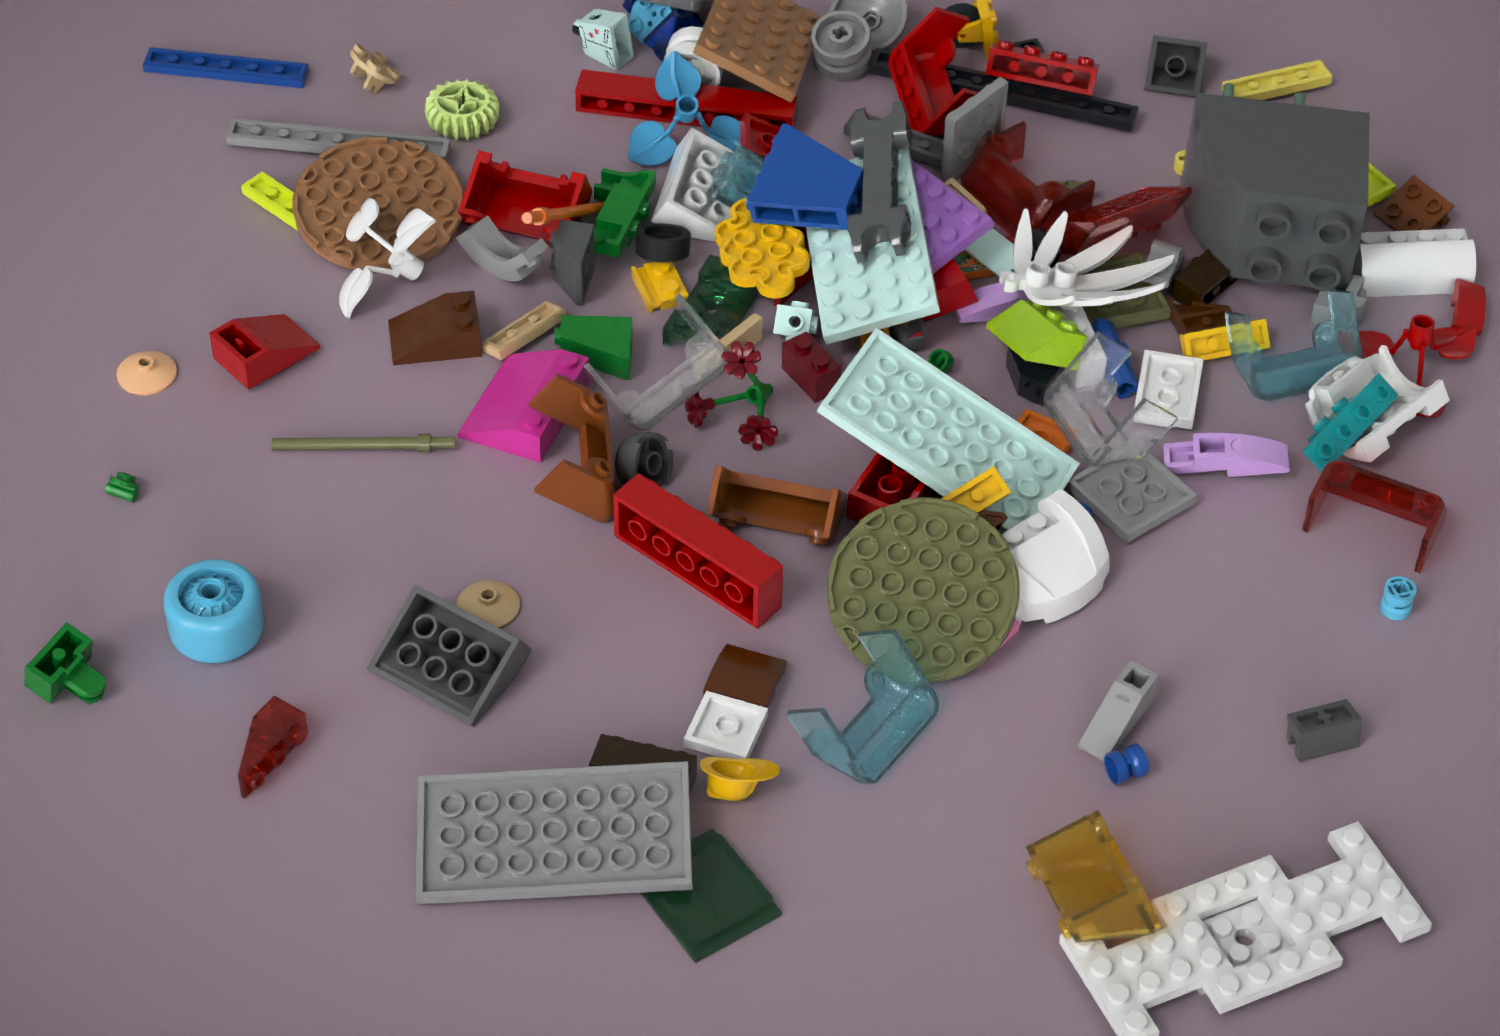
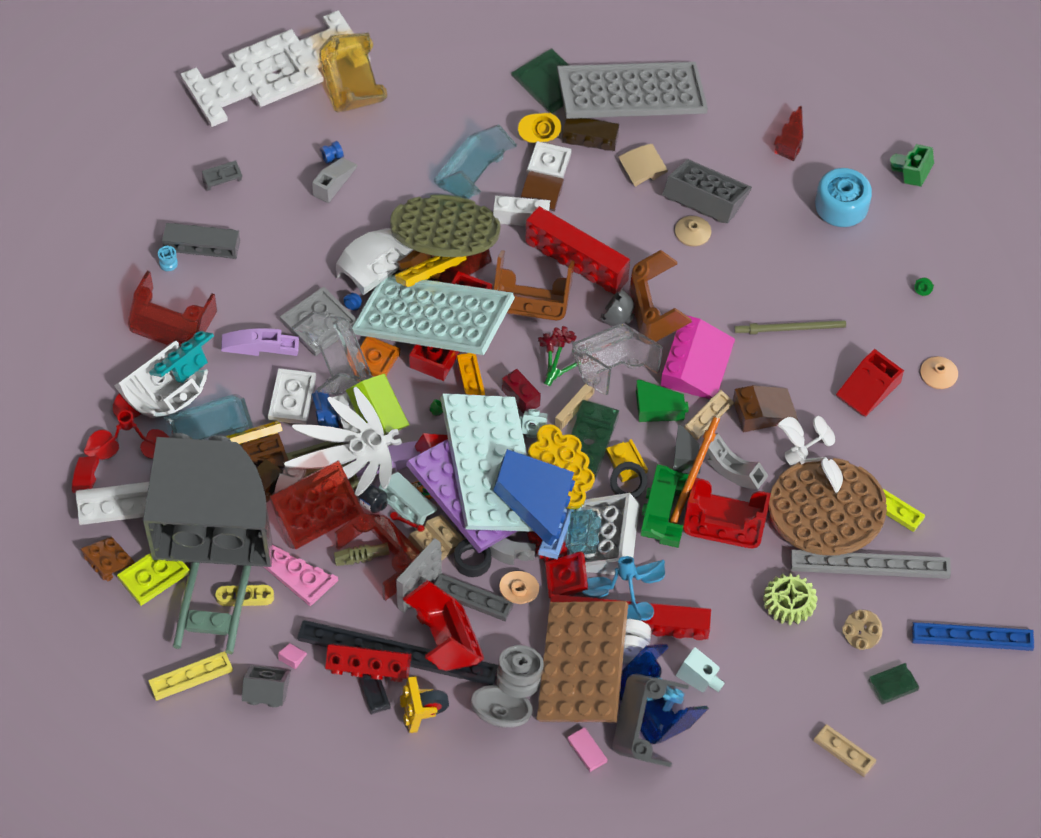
camera: 175 degrees right, 10 degrees up
(349, 28) = (894, 683): none -> clear green plate
(555, 712) = (643, 164): none -> tan slope
(786, 633) = (516, 210): none -> white brick
(834, 135) = (519, 587): none -> light nougat dish
(881, 215) = (484, 510): dark grey piece -> none
(1131, 170) = (301, 578): none -> bright pink wing
(1145, 95) = (291, 656): none -> bright pink slope
(1345, 623) = (202, 240): none -> dark grey brick

